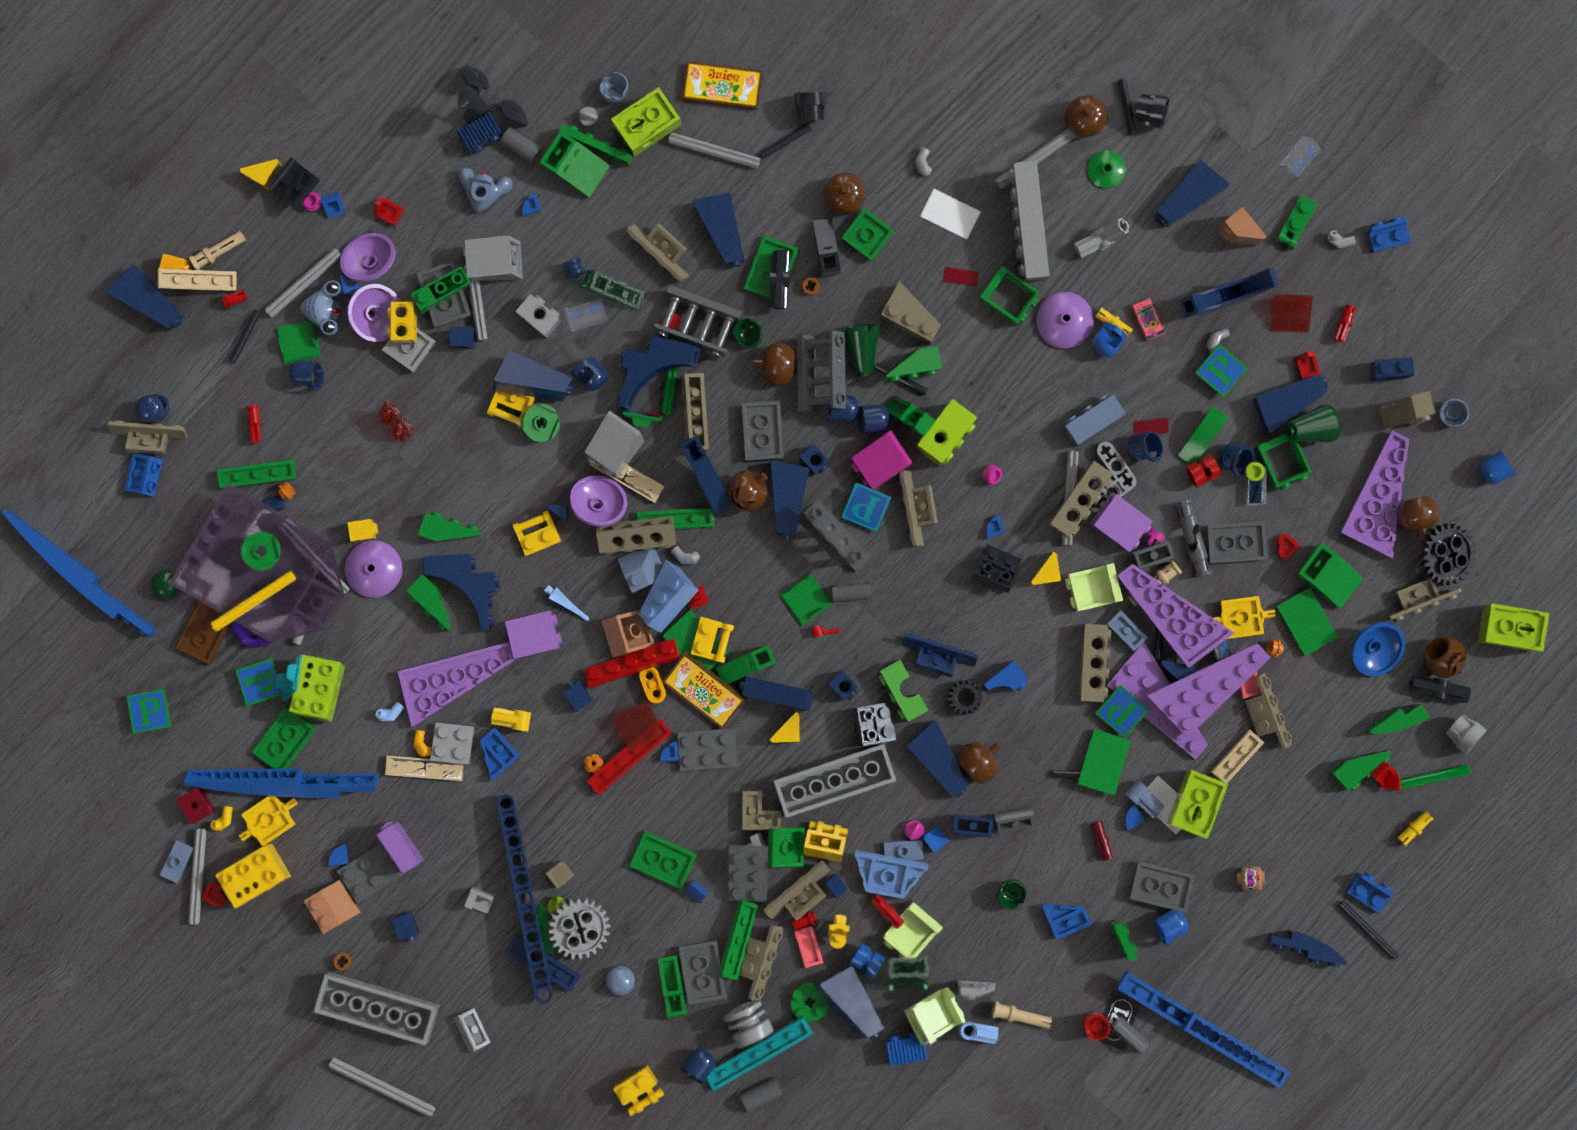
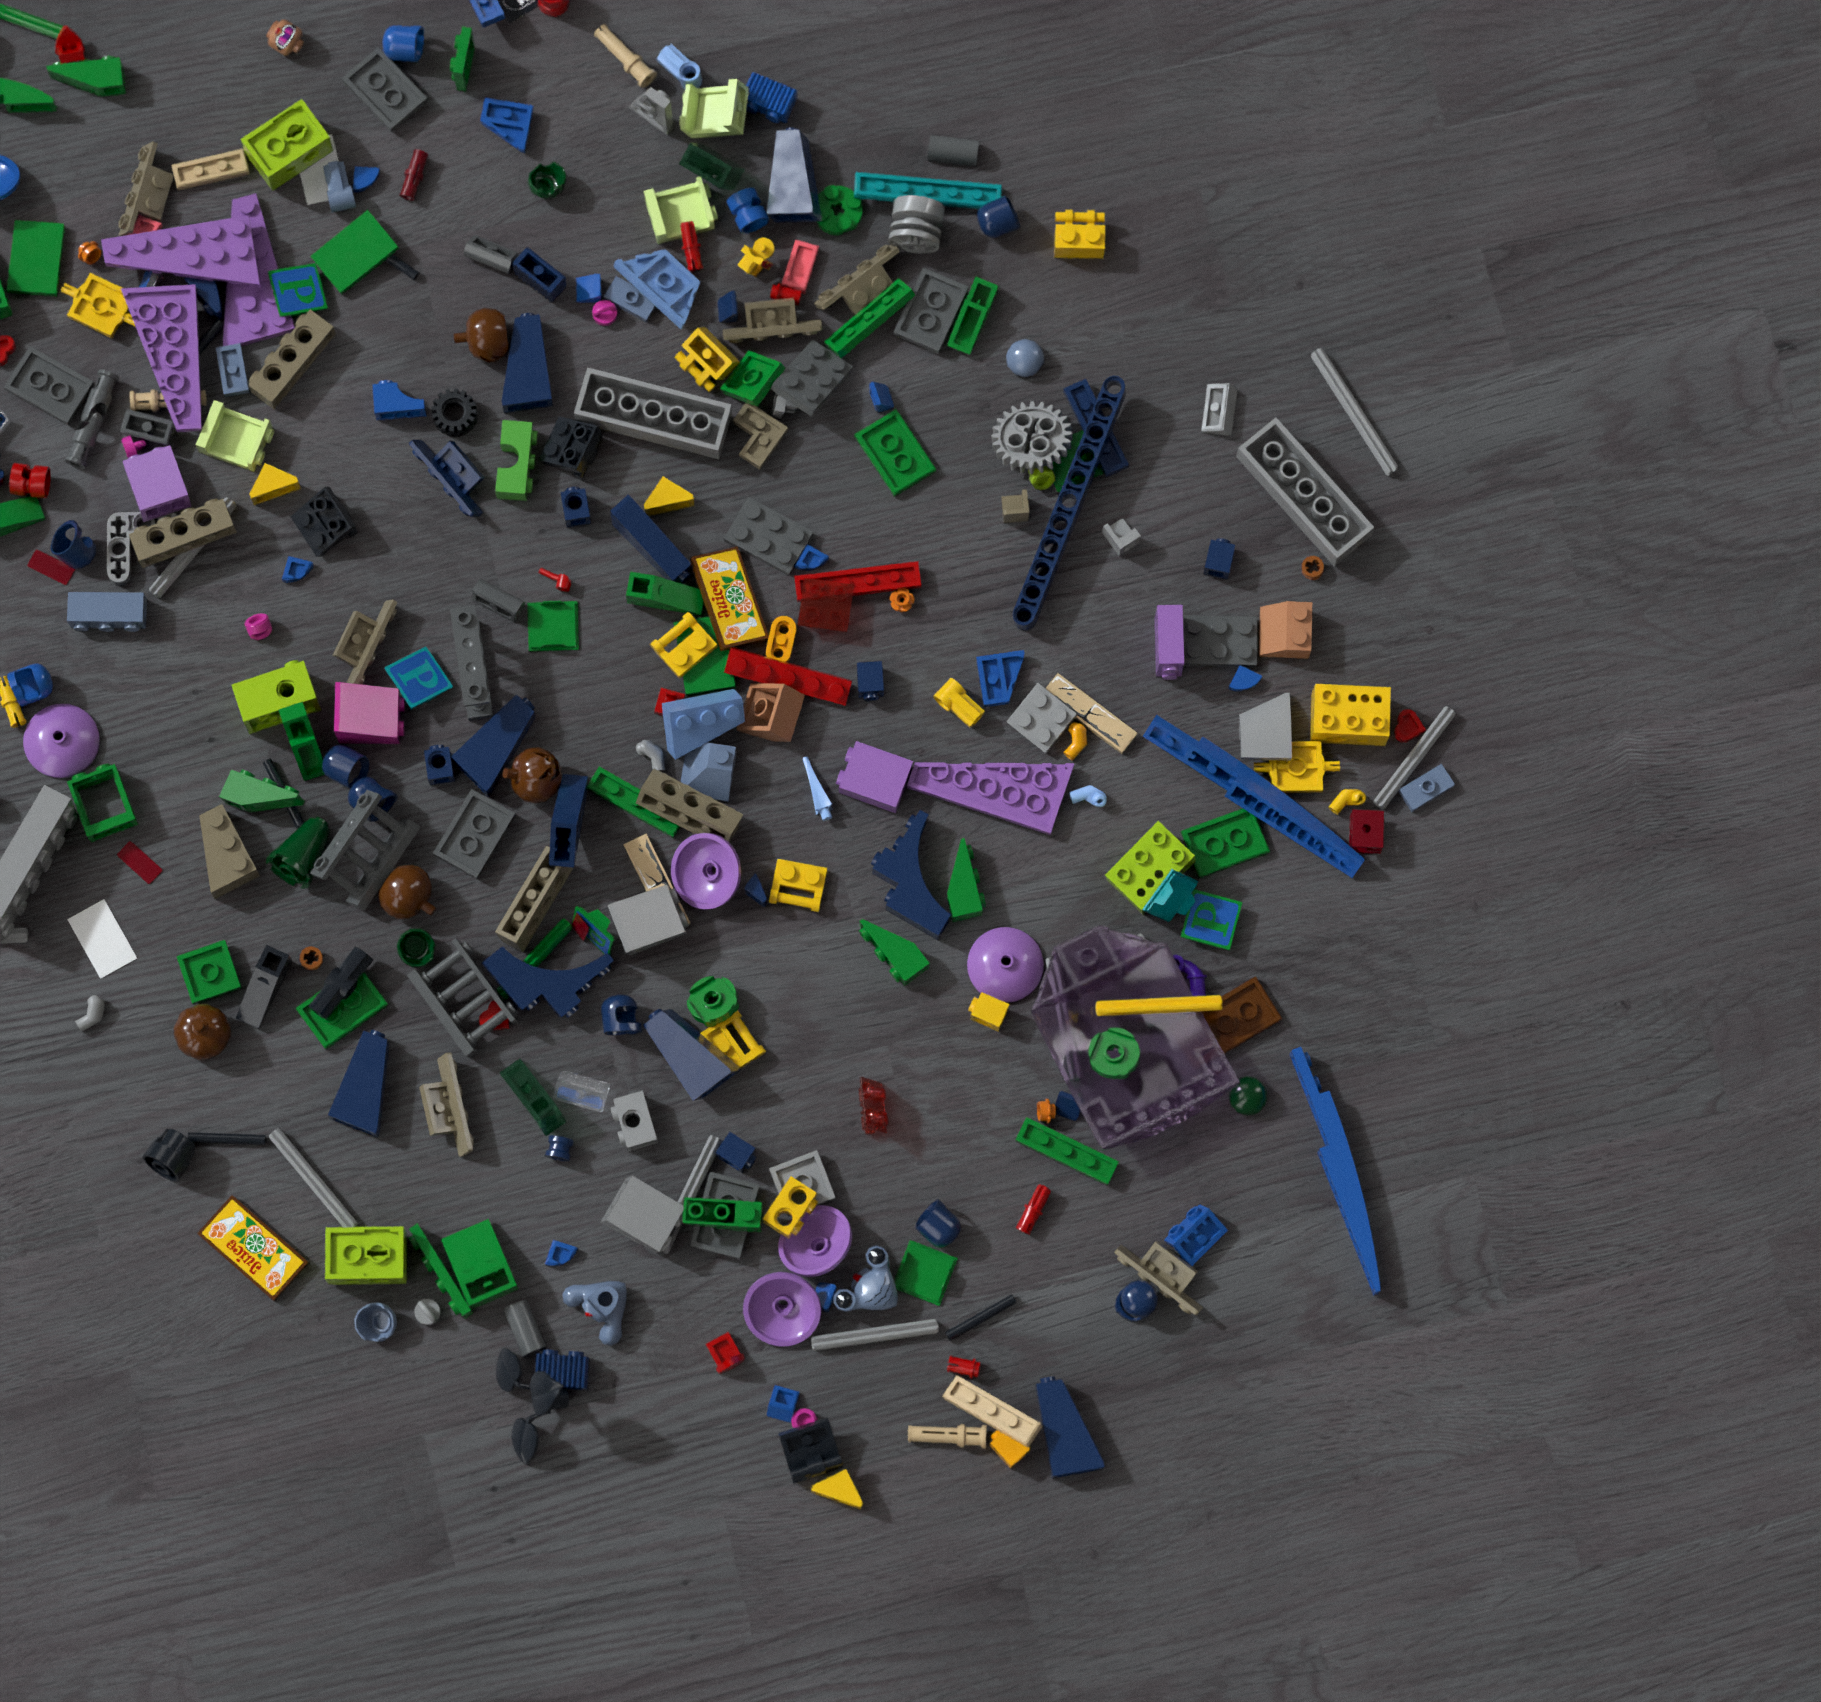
camera: 150 degrees left, 10 degrees down
(148, 711) = (1354, 967): piece -> none
(301, 830) = (1267, 730): none -> light grey slope

